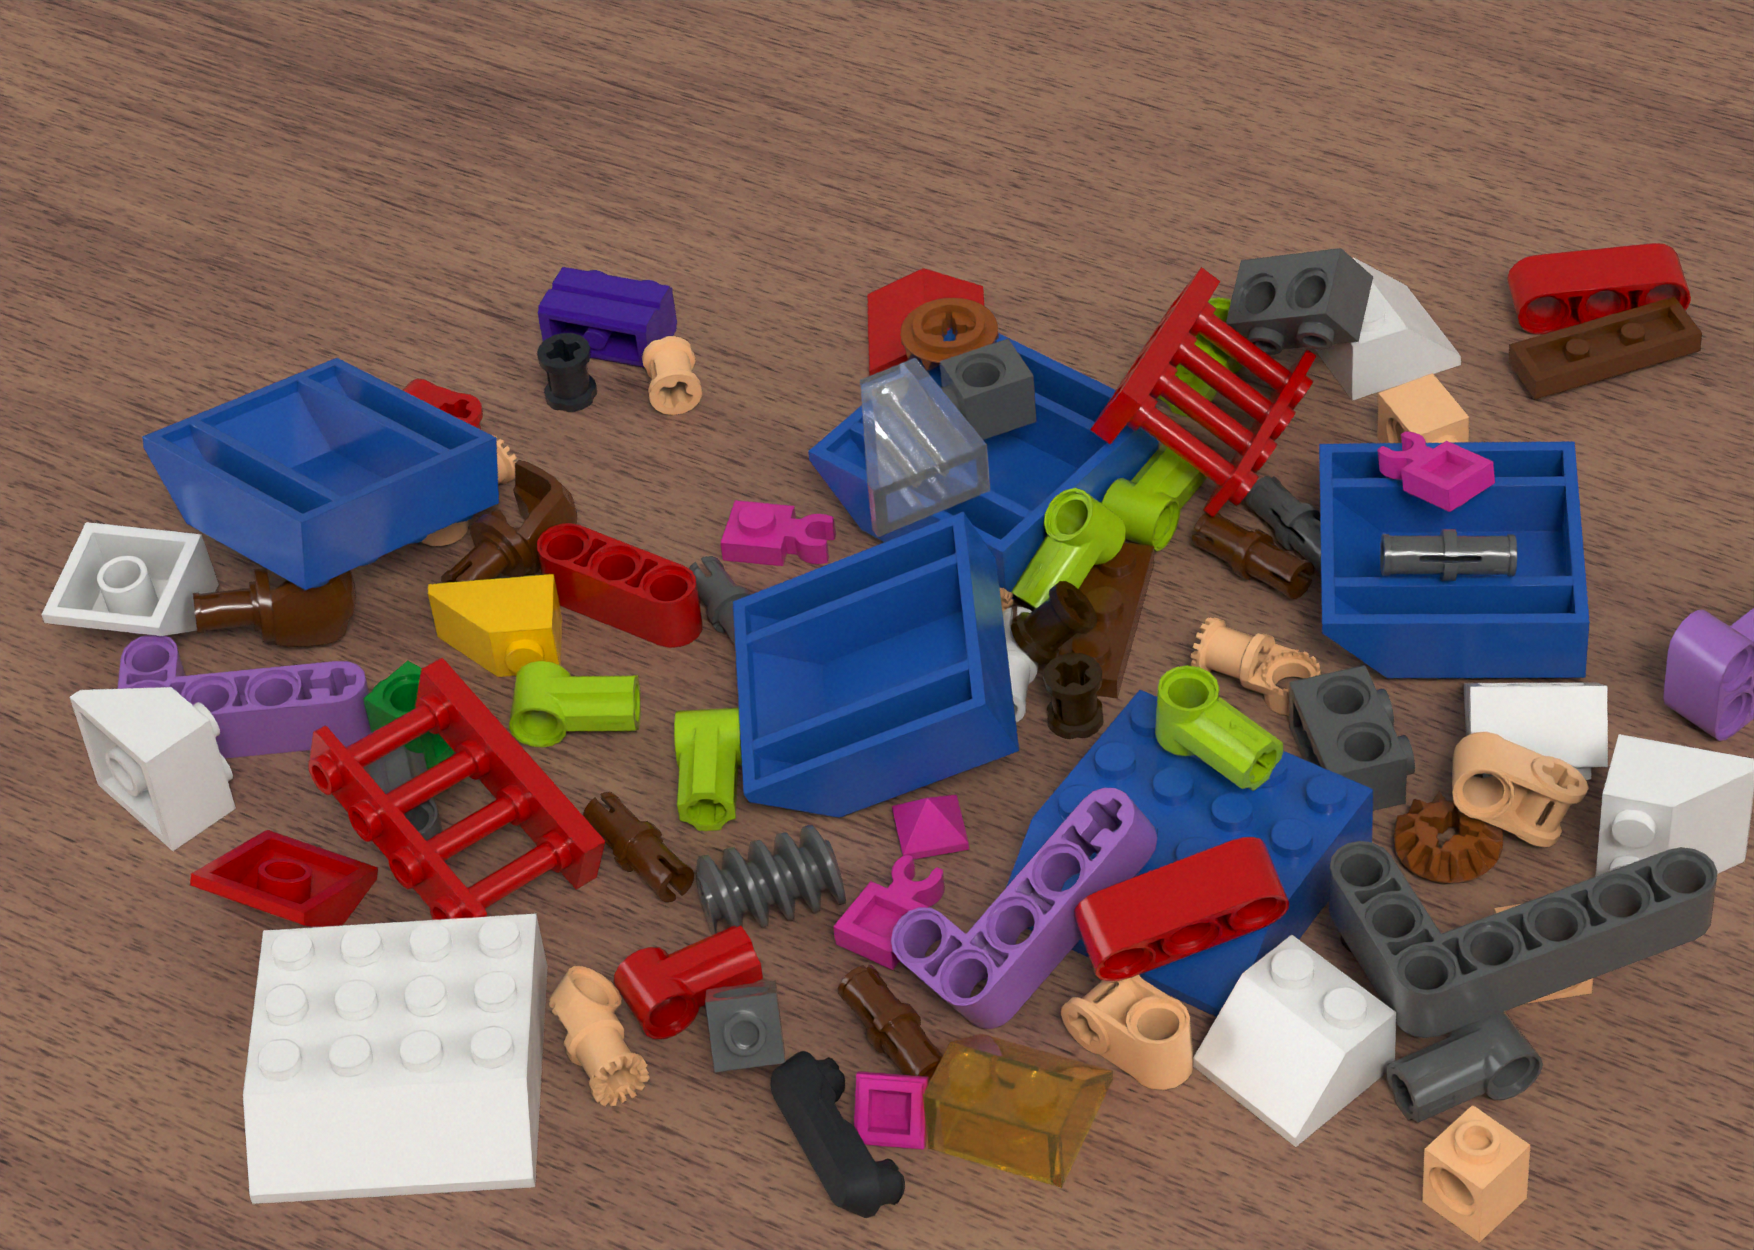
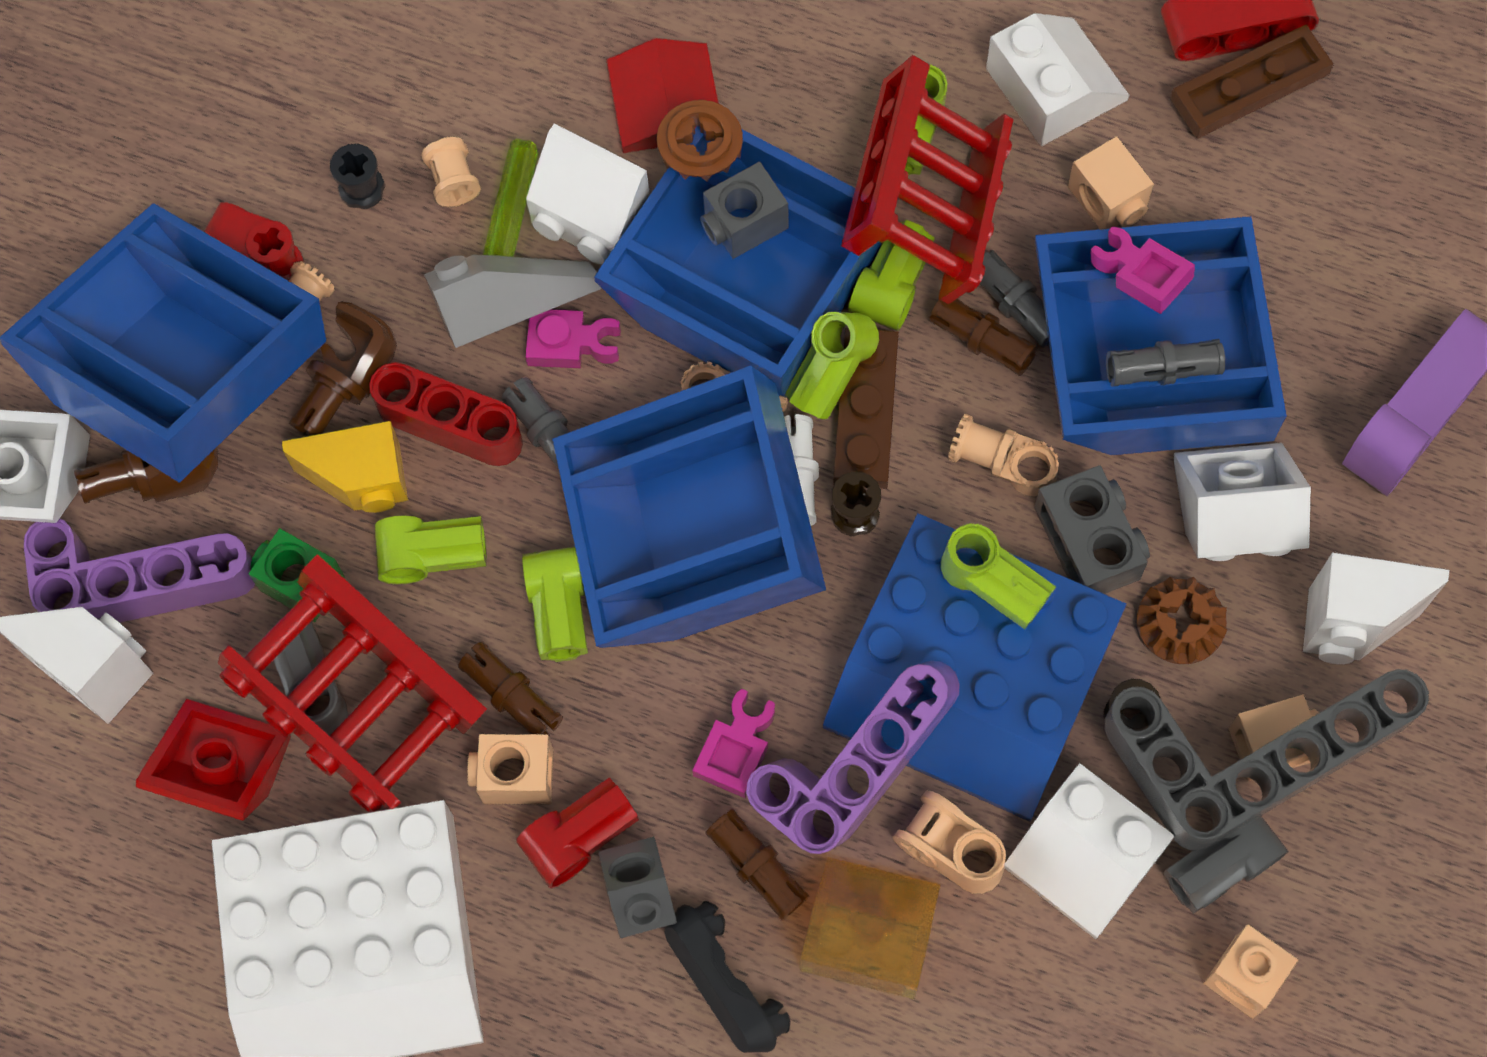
camera: 10 degrees left, 25 degrees up
(595, 1036) = (511, 896): light nougat connector -> none
(608, 311) = (382, 108): dark purple brick -> none
(624, 910) = (534, 782): none -> light nougat brick
(696, 474) = (494, 292): none -> light grey slope
(729, 418) = (511, 199): none -> clear neon green axle
(768, 879) = (630, 727): dark grey piece -> none
(808, 381) = (584, 194): none -> white slope
(890, 1109) = (768, 949): dark pink slope -> none
(917, 448) = (691, 278): clear slope -> none
(930, 827) = (752, 644): dark pink slope -> none
(1054, 622) = (832, 438): dark brown bush -> none
(1181, 909) = (990, 759): red beam -> none
(1300, 300) = (999, 66): dark grey brick -> none
(1523, 795) = (1237, 579): light nougat piece -> none

